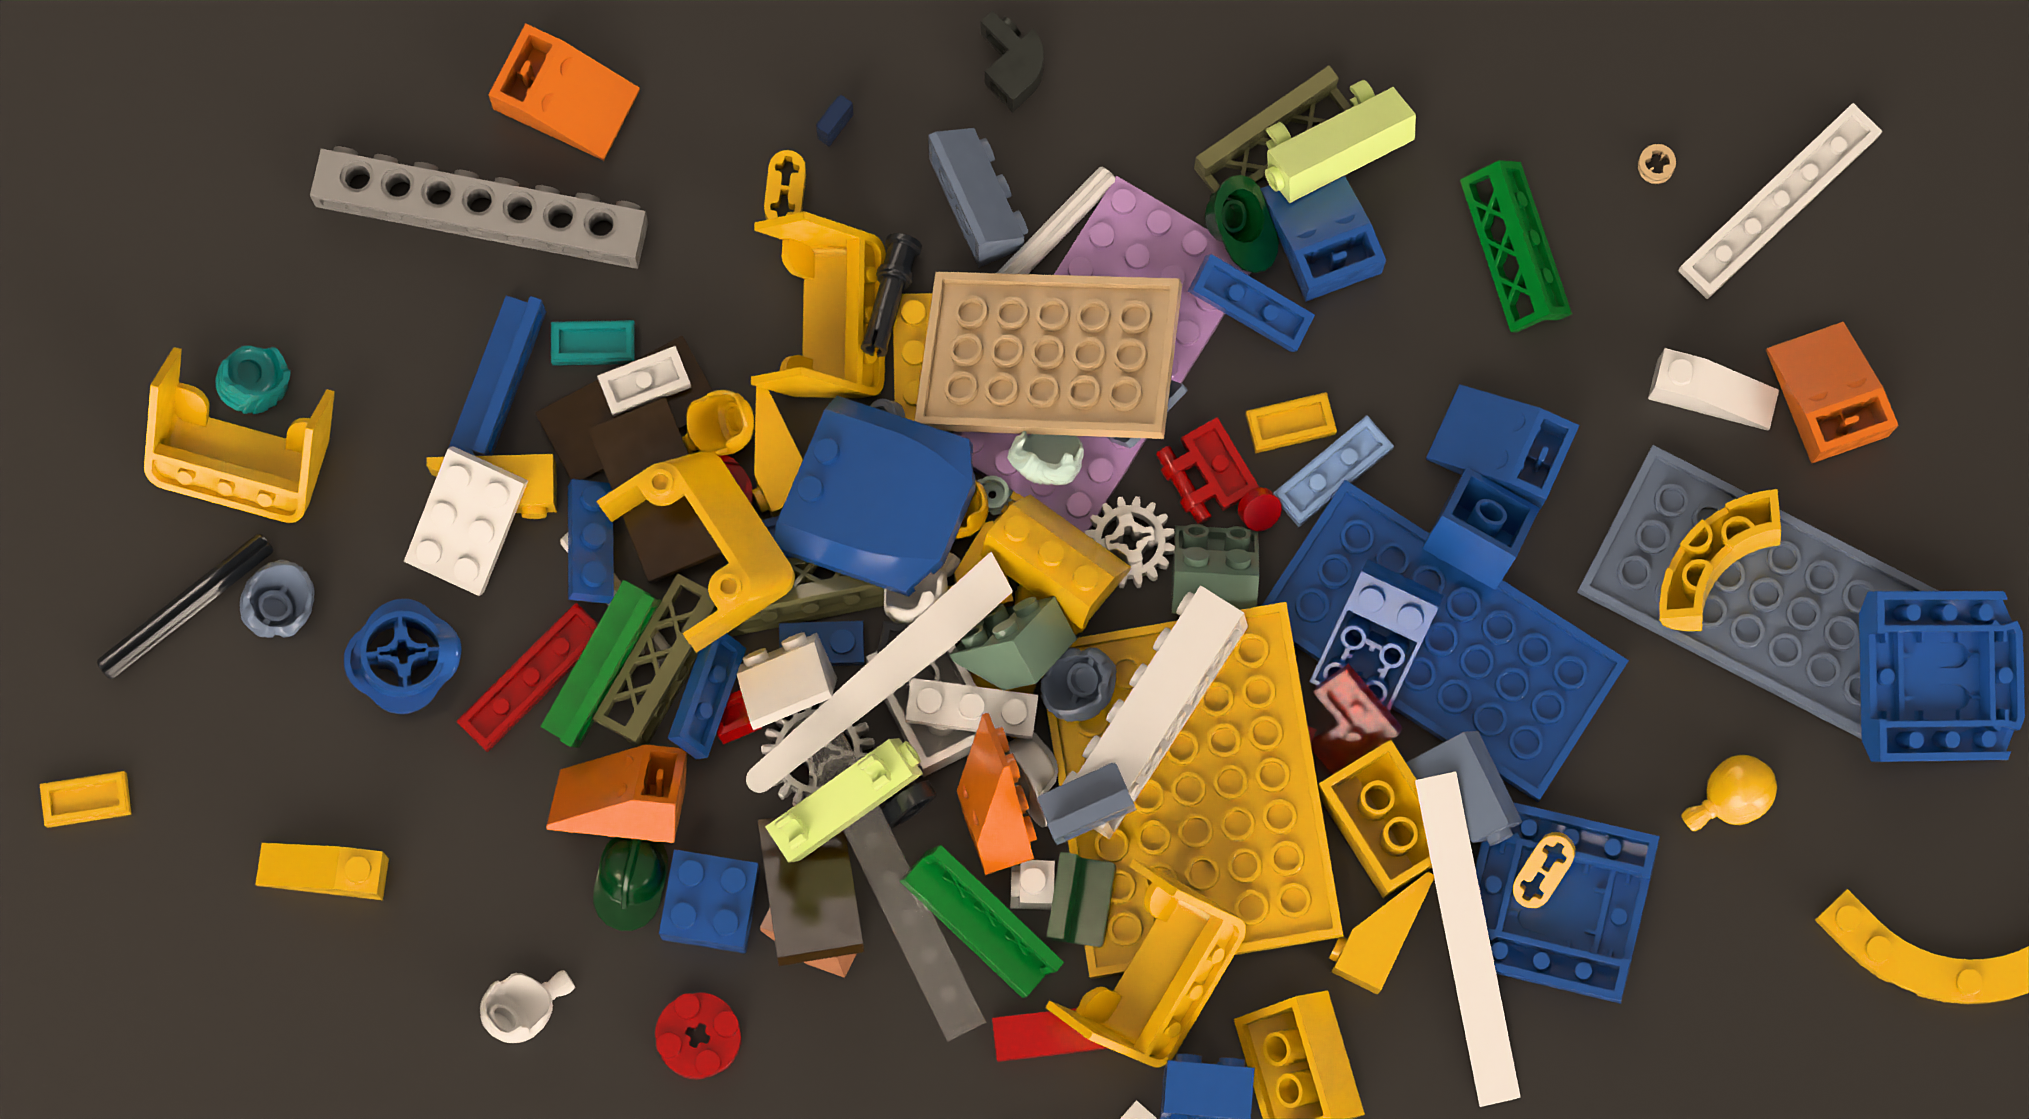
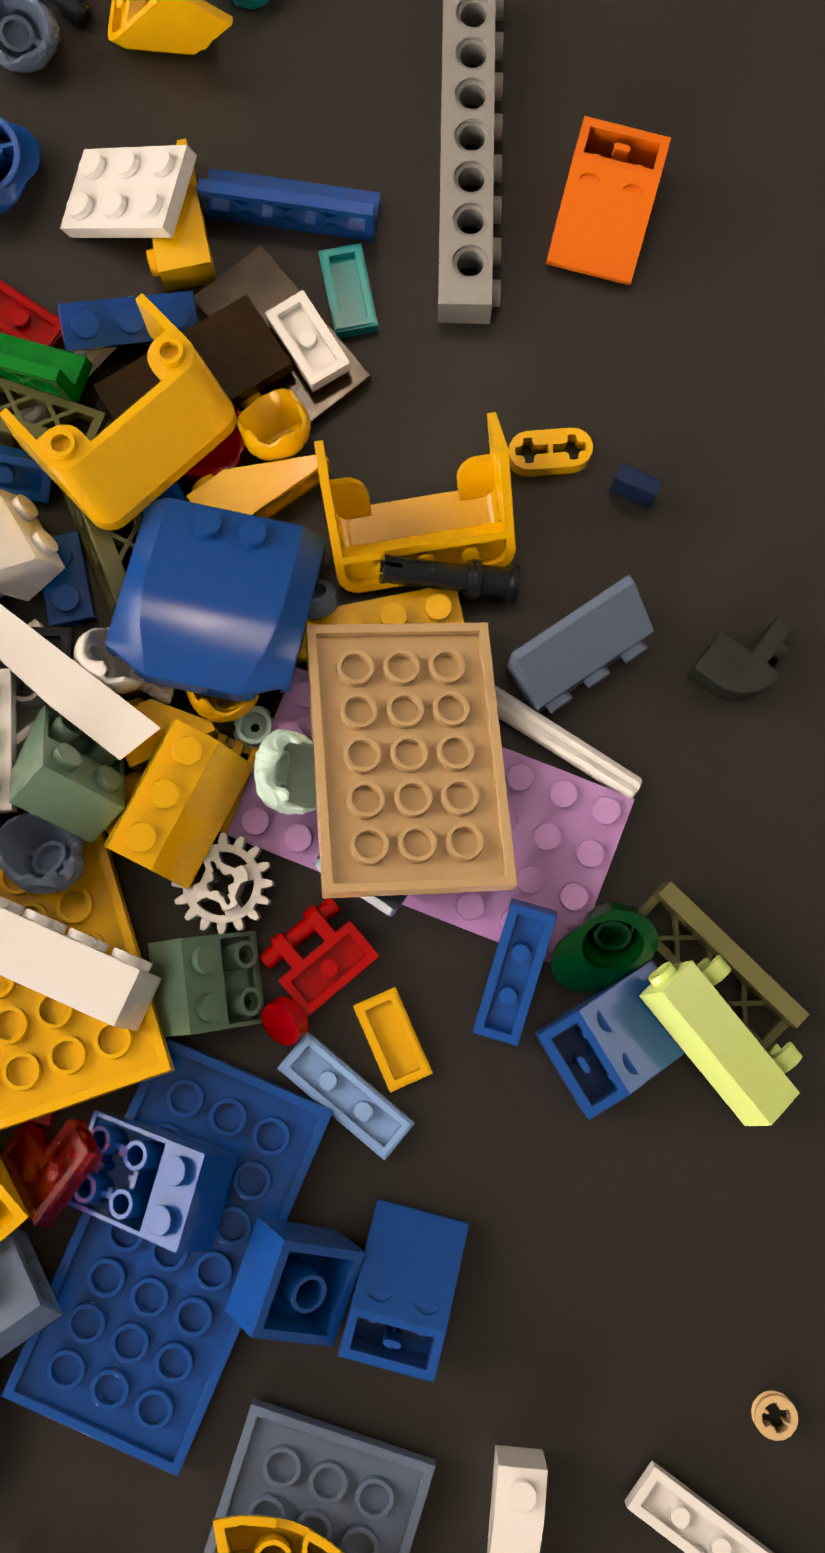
camera: 85 degrees right, 5 degrees up
(1528, 243) = (650, 1278): green fence -> none

